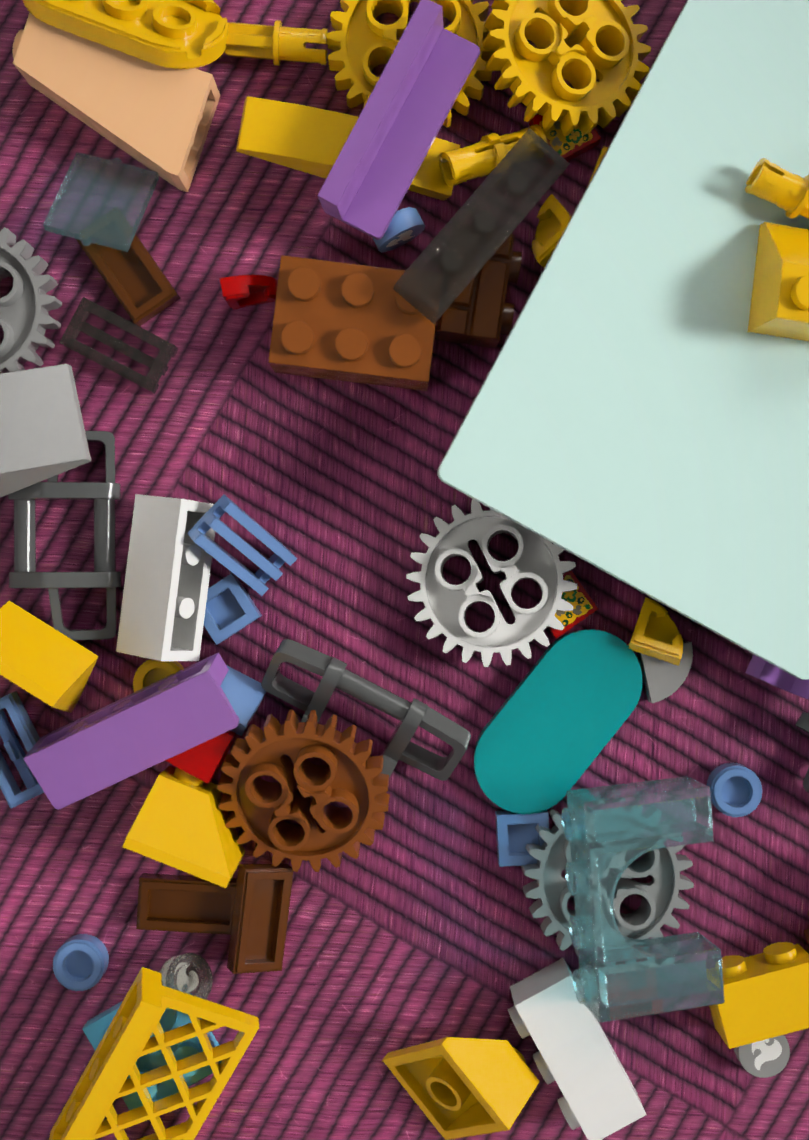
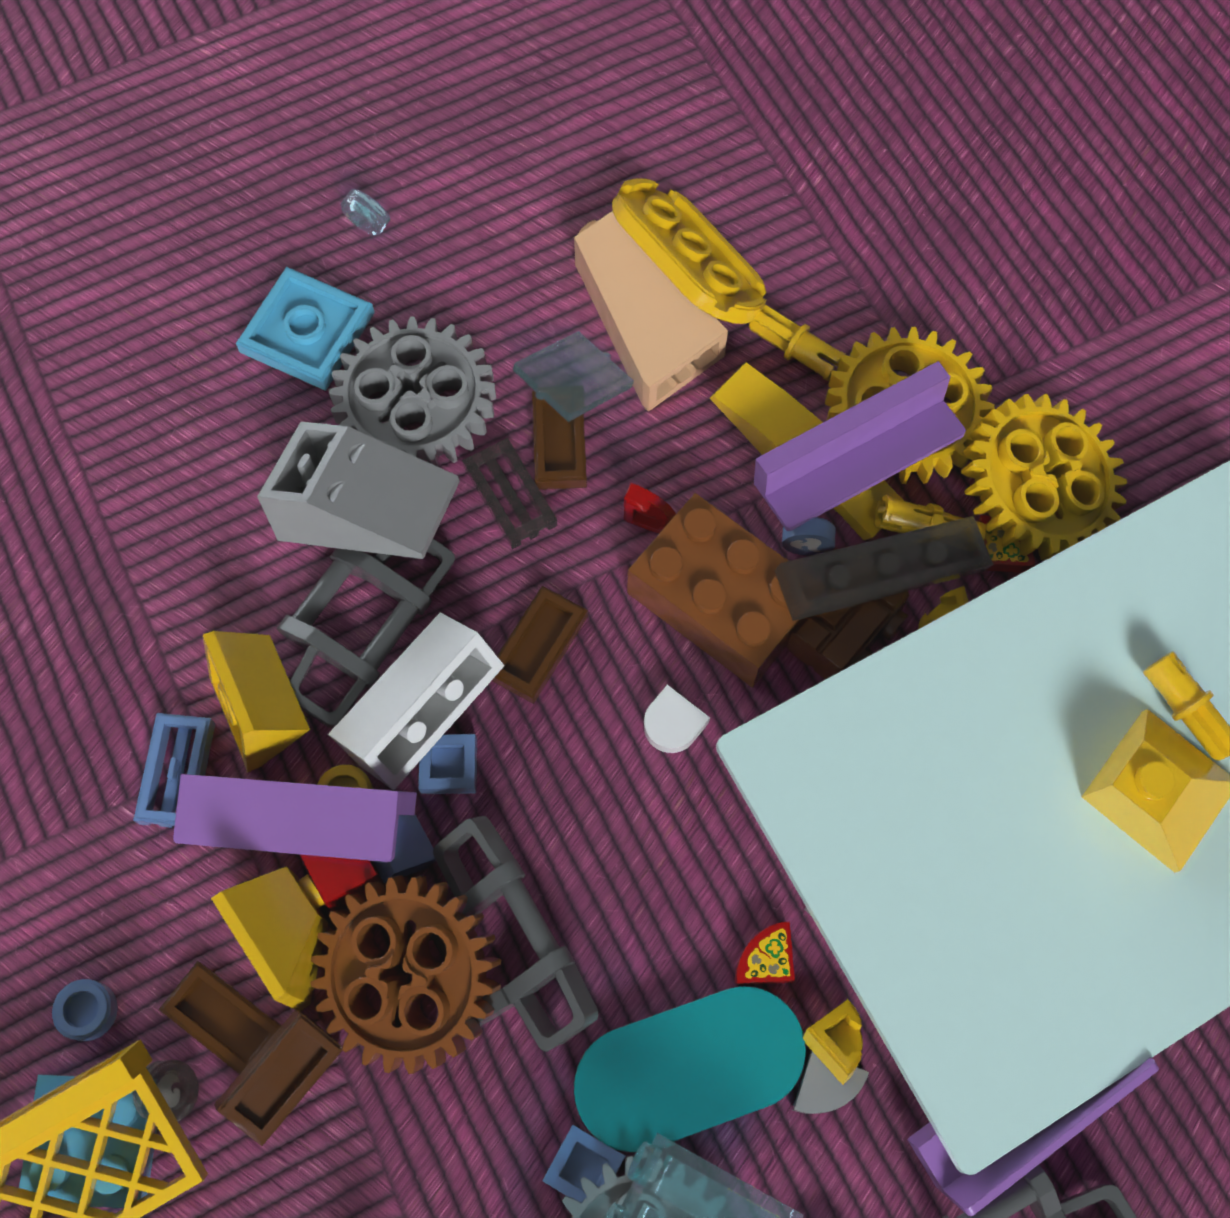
camera: 30 degrees right, 20 degrees down
(231, 459) = (539, 643): none -> reddish brown tile
(268, 567) = (511, 753): medium blue tile -> none
(381, 462) = (673, 722): none -> white tile
(448, 603) = (657, 884): white gear -> none

